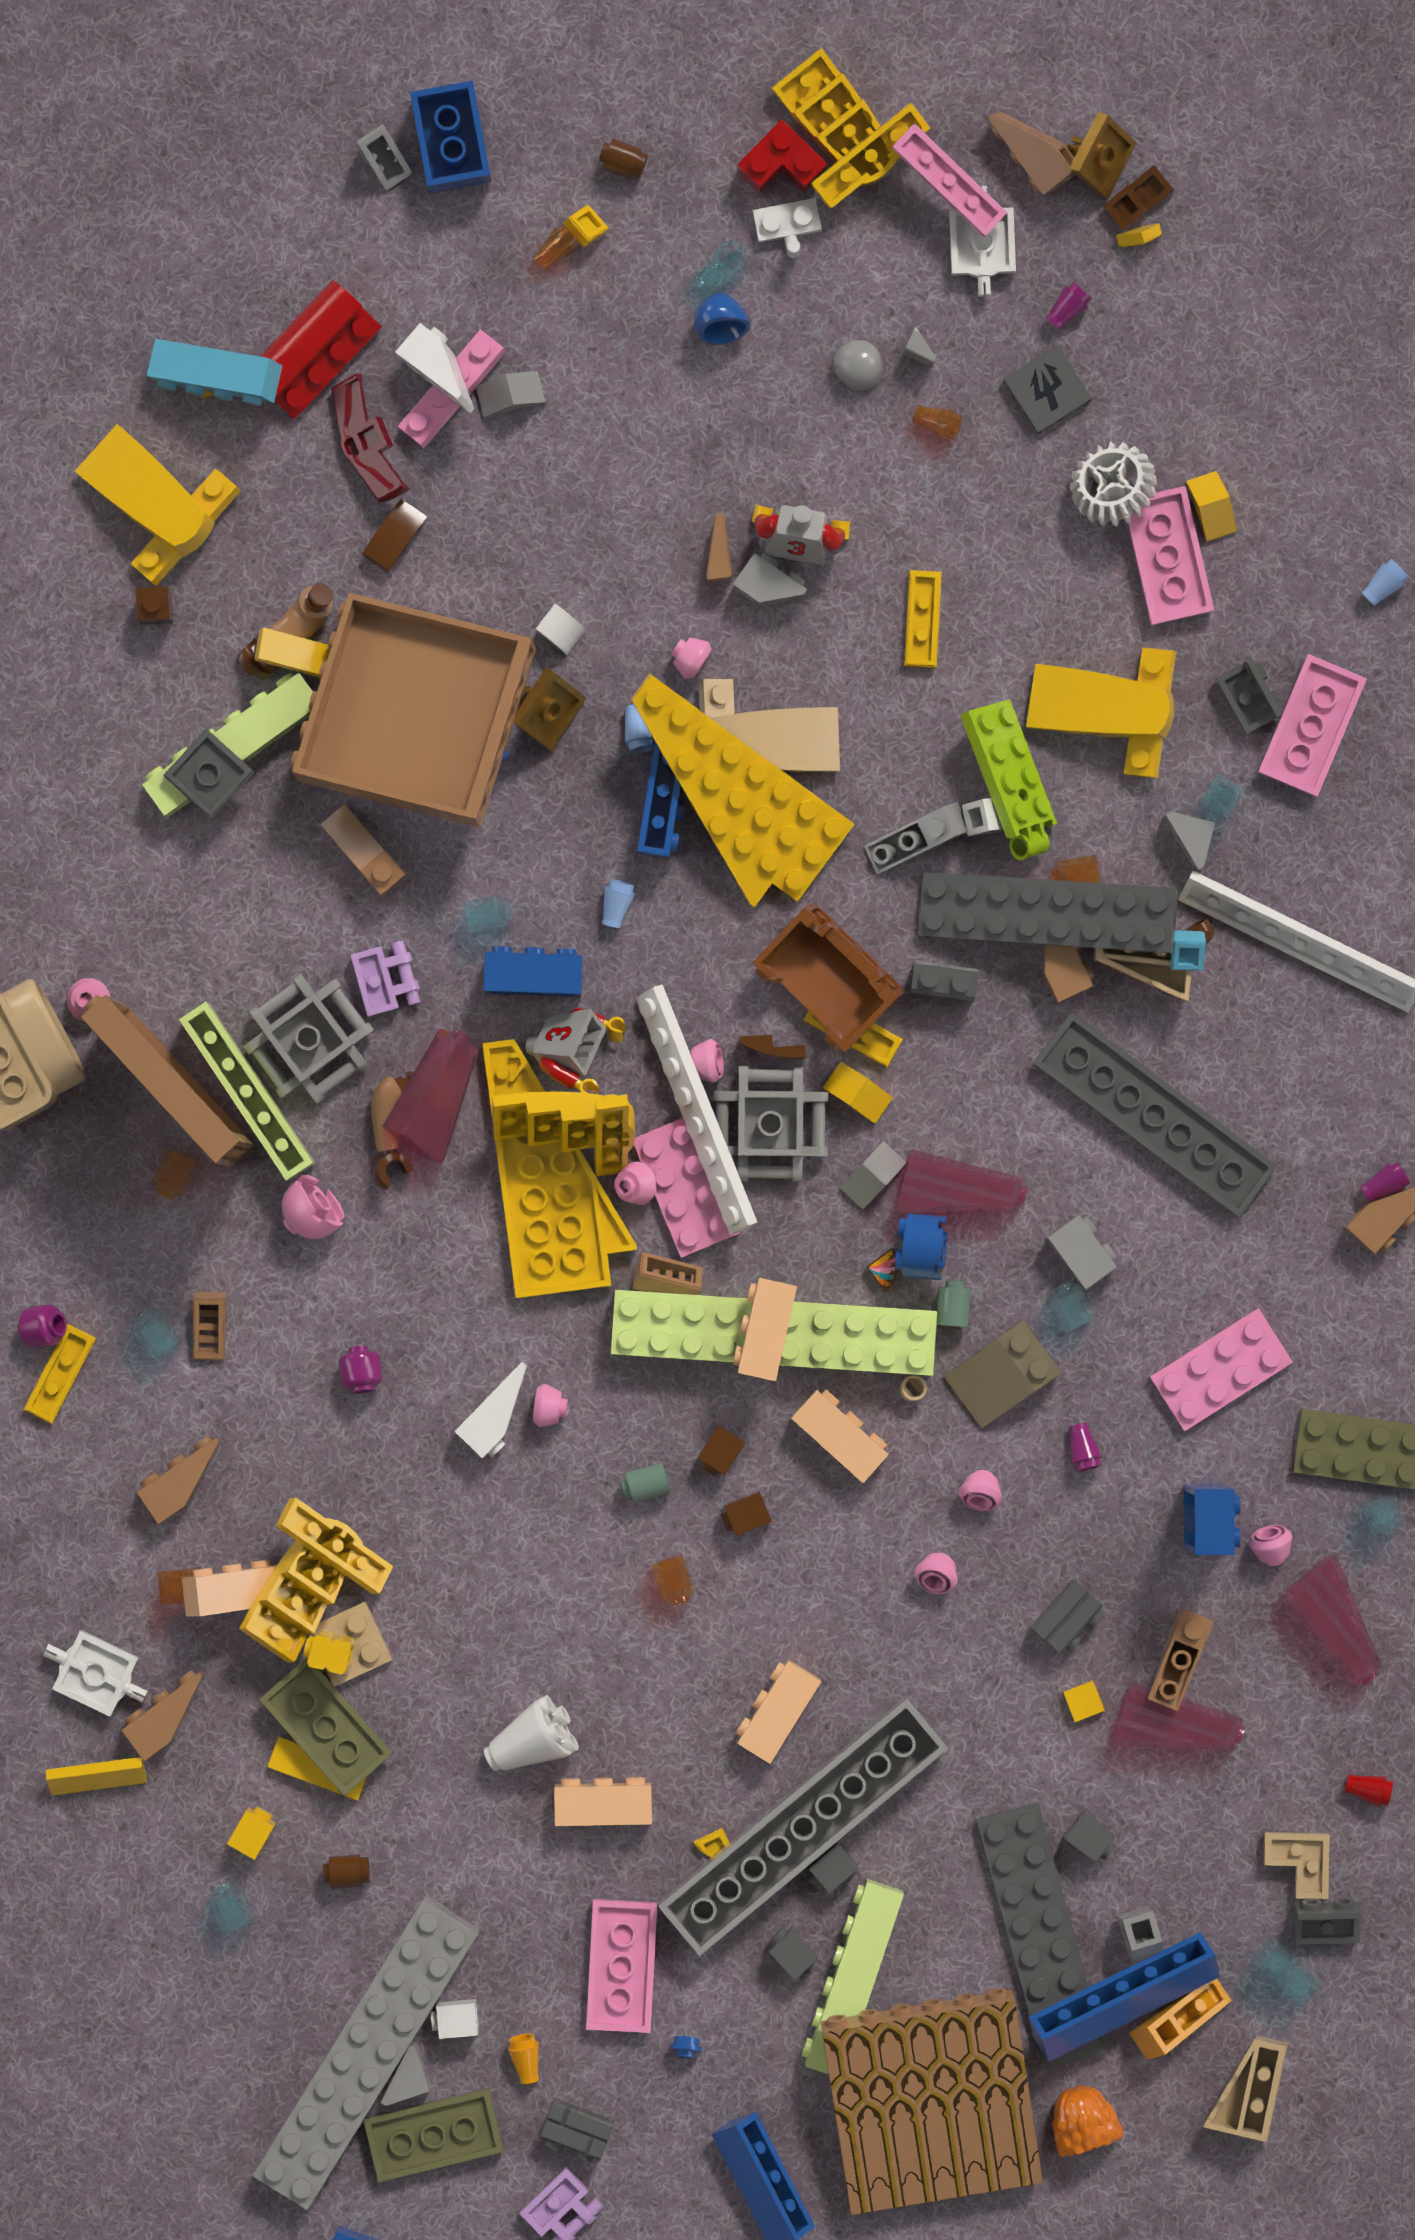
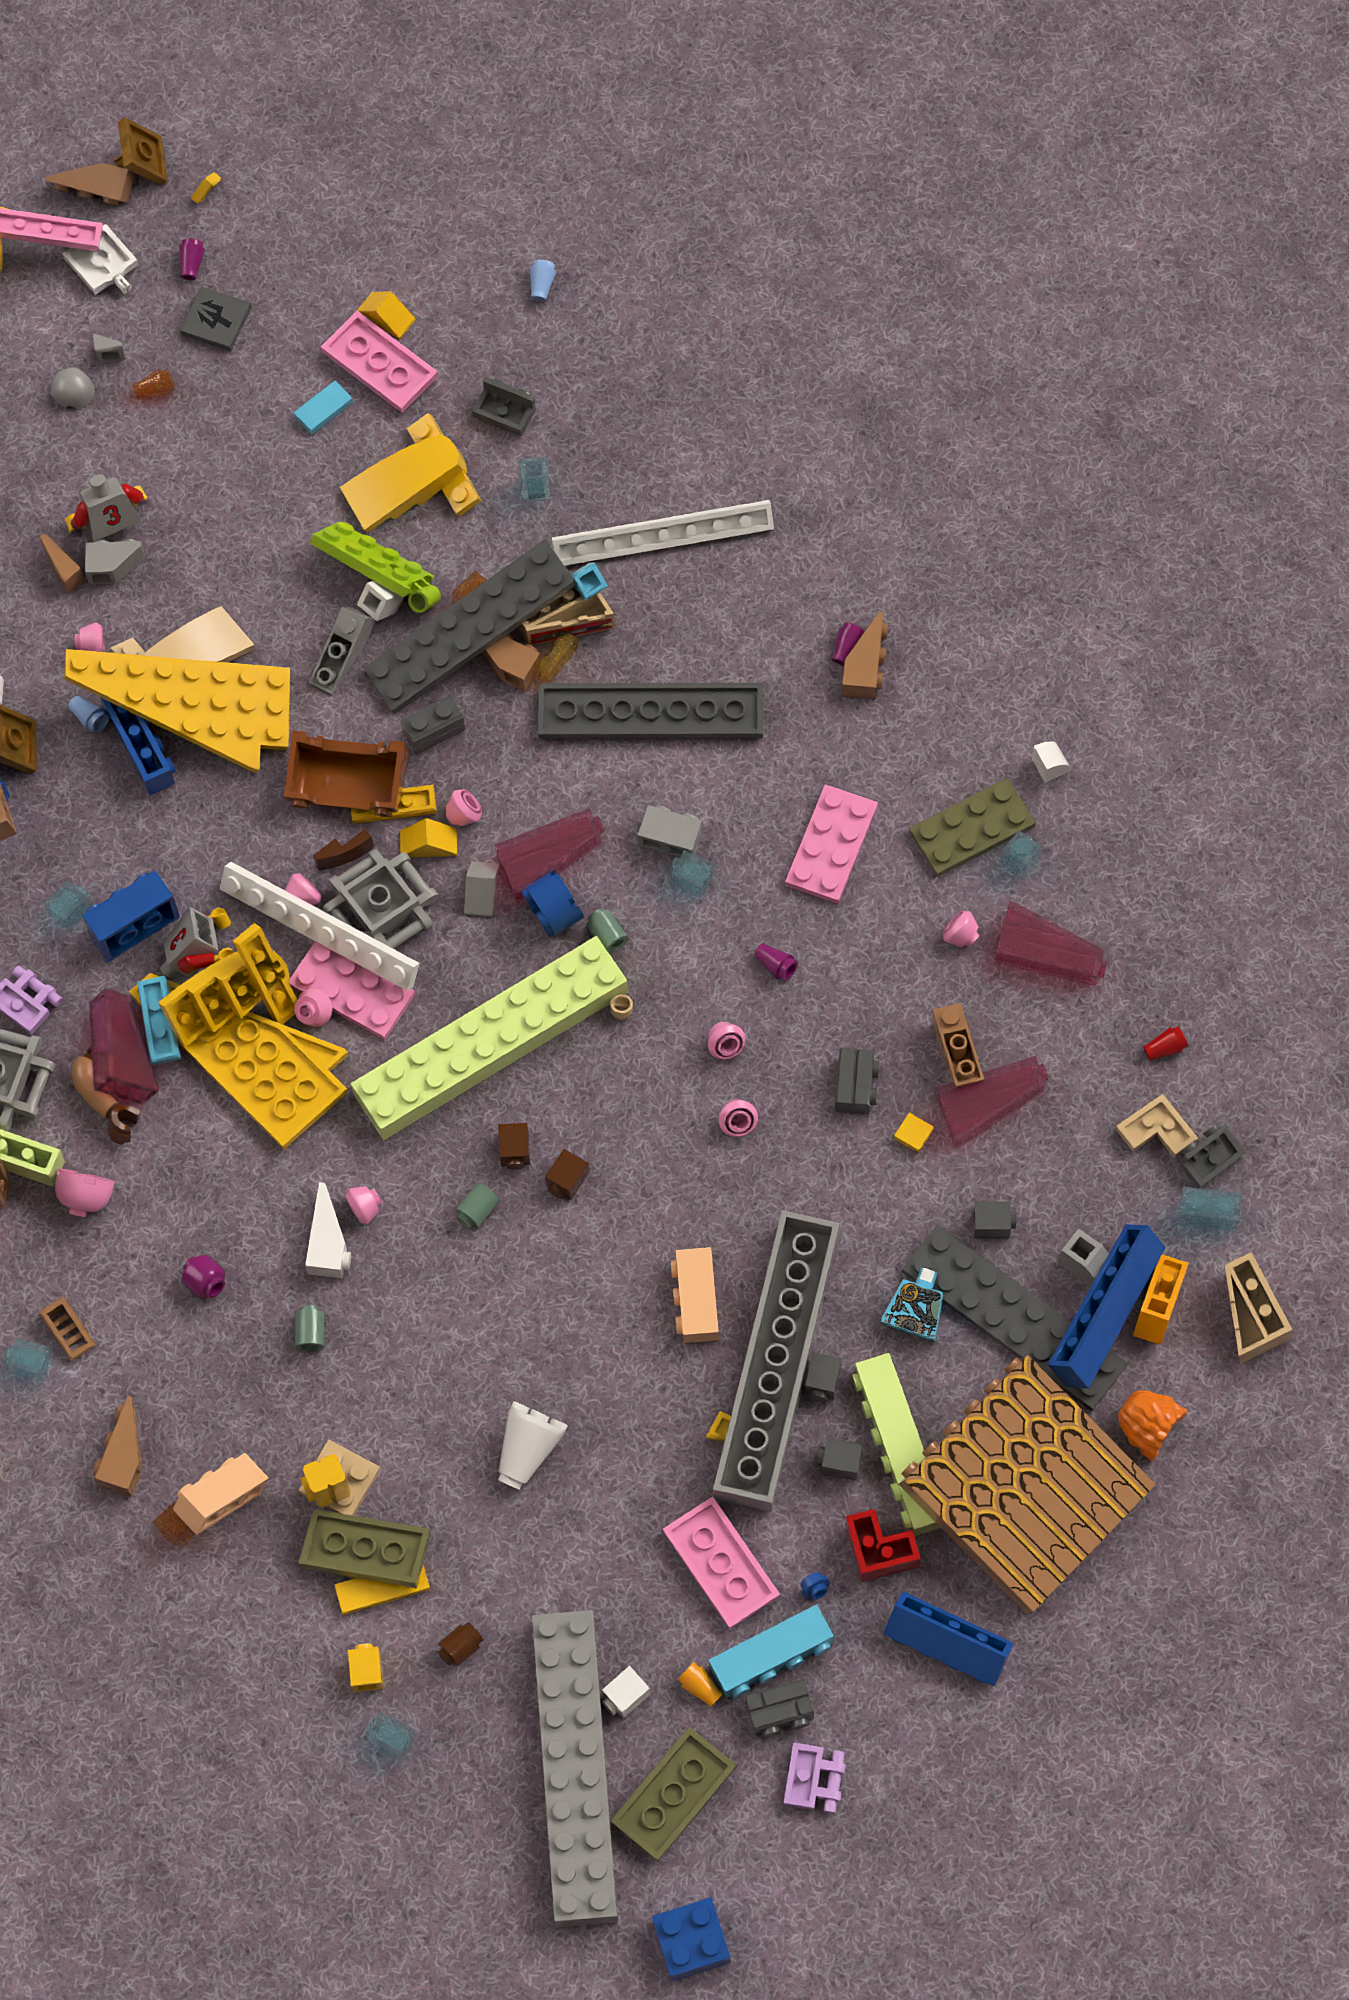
camera: 30 degrees left, 20 degrees down
(95, 1673) = (158, 1638): white plate -> none
(96, 1776) = (214, 1714): yellow tile -> none
(158, 1725) = (234, 1640): medium nougat slope -> none
(309, 1579) = (272, 1444): yellow slope -> none
(408, 2079) = (623, 1764): light grey slope -> none
(419, 1487) = (309, 1328): none -> sand green brick
(494, 1080) = (160, 1037): none -> medium azure tile
(603, 1802) = (616, 1454): light nougat brick -> none
(606, 2076) = (771, 1651): none -> medium azure brick
(617, 900) = (157, 833): light blue cone -> none
(655, 1275) = (374, 1055): medium nougat slope -> none
(673, 1579) = (547, 1258): clear orange brick -> none
(756, 2059) = (876, 1554): none -> red brick
(765, 1329) = (479, 1025): light nougat brick -> none
(841, 1434) = (593, 1074): light nougat brick -> none
(884, 1270) = (539, 944): tile -> none
(911, 1086) = (463, 808): none -> bright pink cone
(923, 619) = (239, 513): yellow tile -> none
(960, 1867) = (916, 1307): none -> torso
(1002, 1374) = (678, 950): dark tan slope -> none
(1081, 564) = (323, 407): none -> medium azure tile
(1112, 473) = (305, 338): white gear -> none
(1121, 991) = (562, 652): none -> clear yellow plate
(1138, 198) = (189, 166): reddish brown slope -> none
(1192, 835) = (532, 518): light grey slope -> none
(1211, 1519) = (900, 927): blue brick -> none
(1312, 725) = (562, 398): bright pink plate -> none

